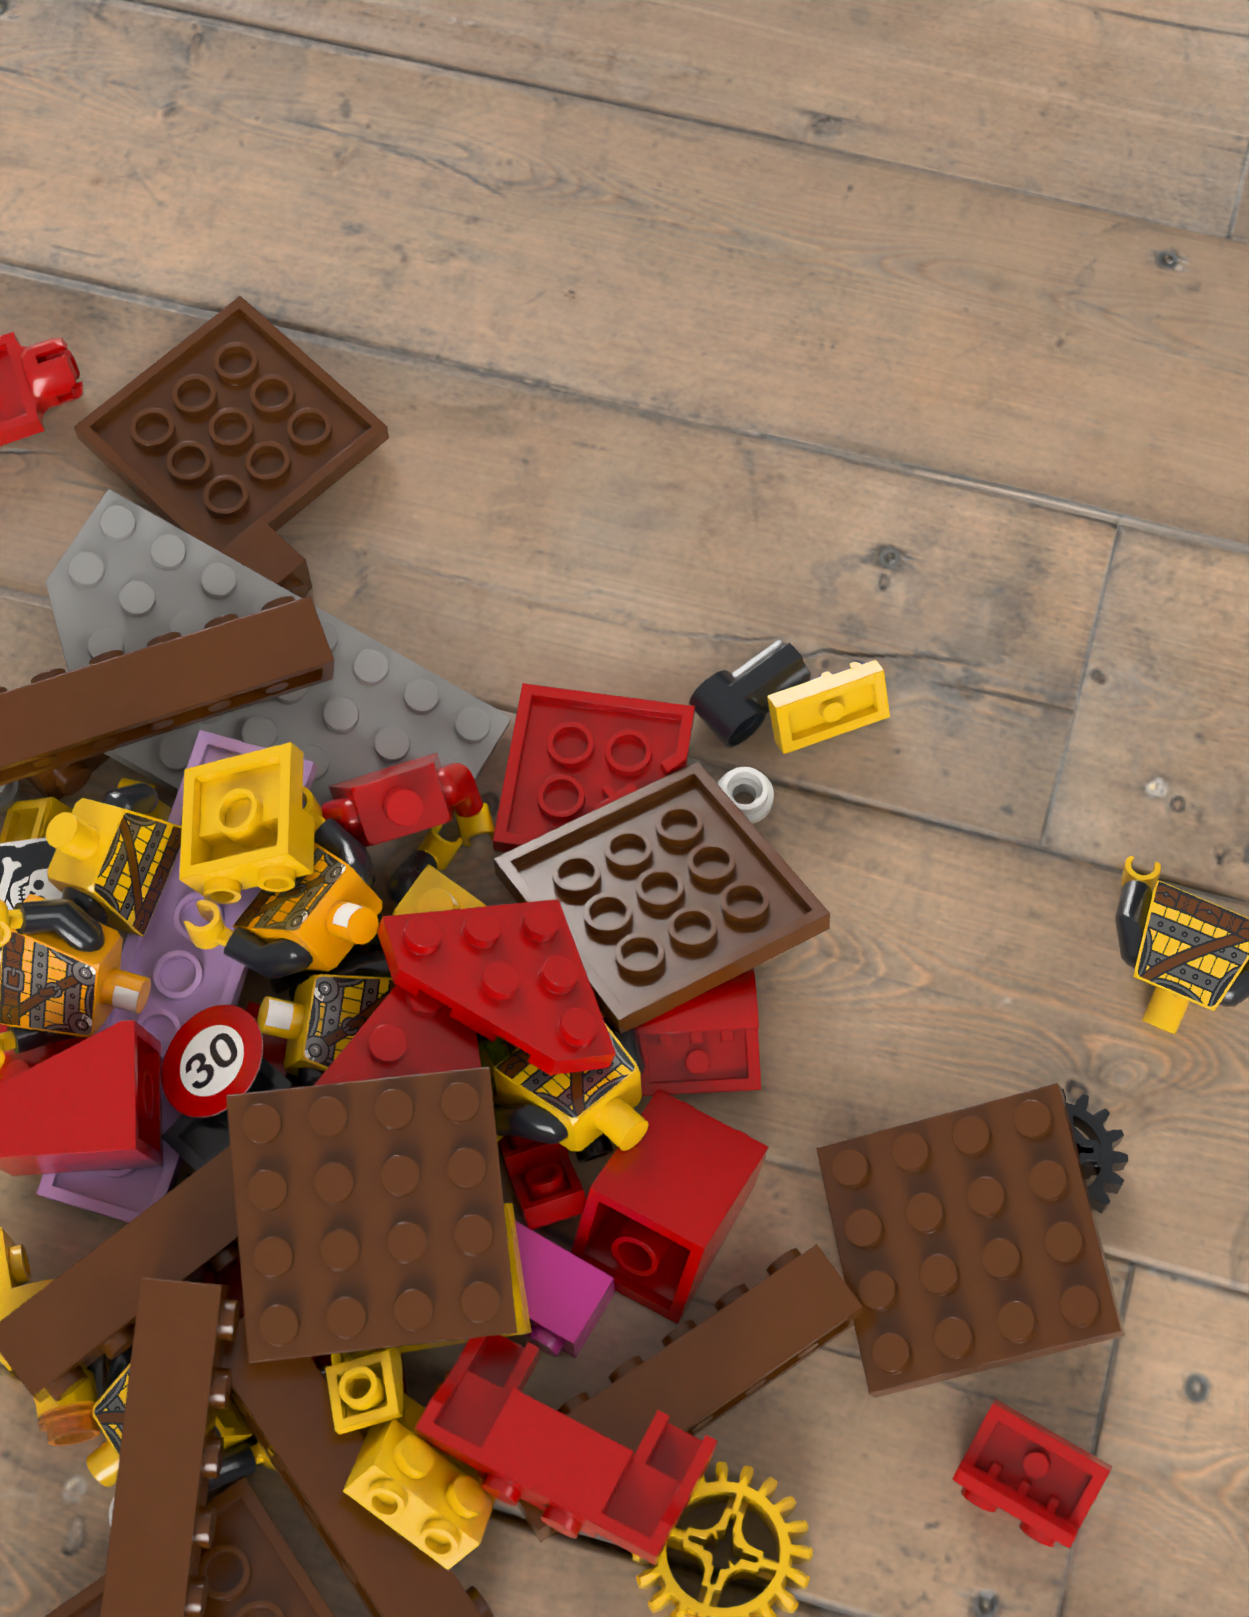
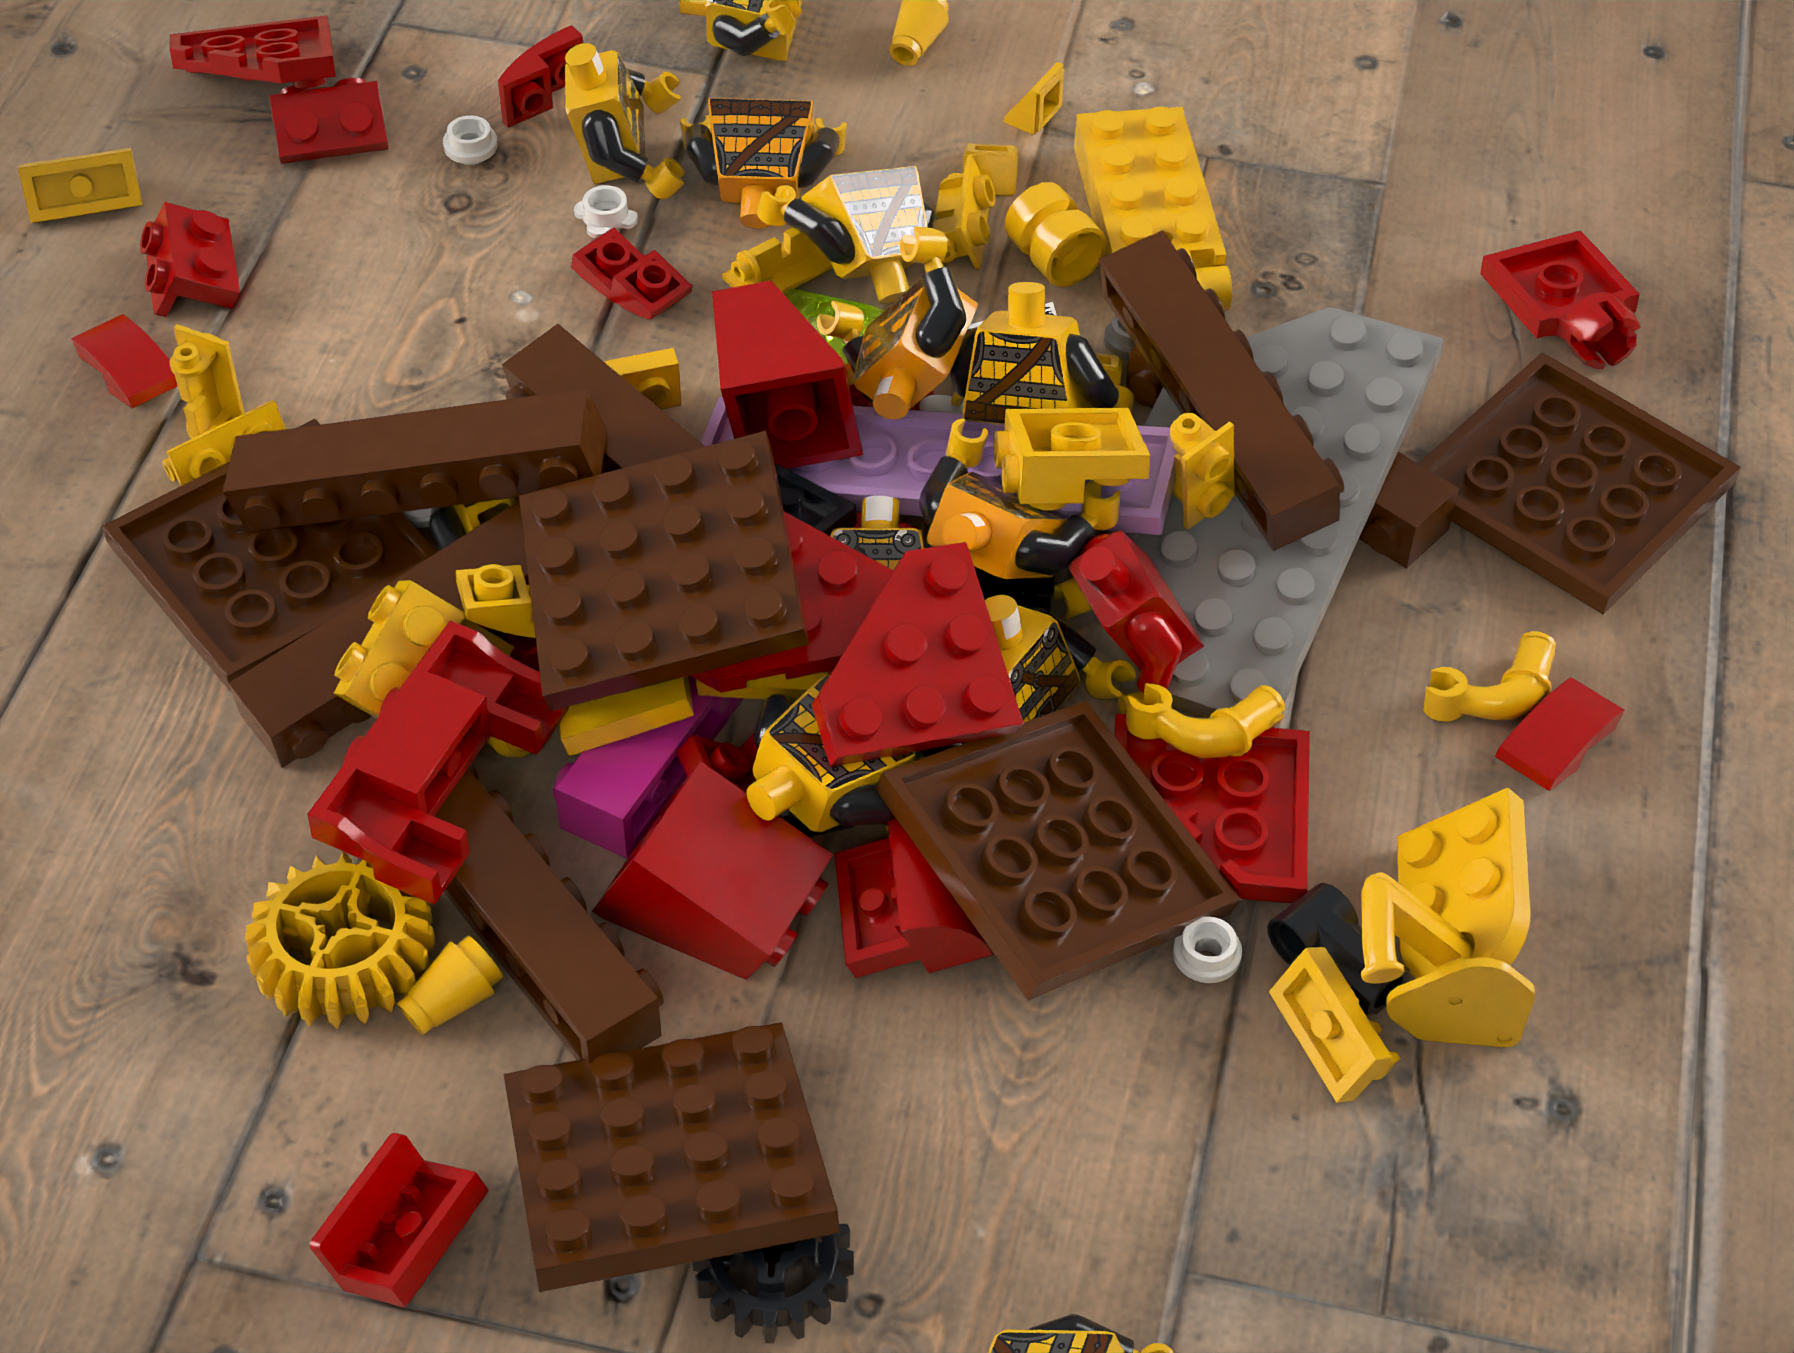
camera: 85 degrees right, 15 degrees down
(211, 1058) = (837, 478): sticker -> none
(268, 712) = (1202, 467): none -> yellow hinge
(476, 514) = (1517, 694): none -> yellow piece
(528, 490) = (1558, 733): none -> red slope
(539, 751) = (1222, 734): none -> yellow piece
(708, 590) = (1458, 924): none -> yellow plate
(774, 1446) = (450, 985): none -> yellow cone

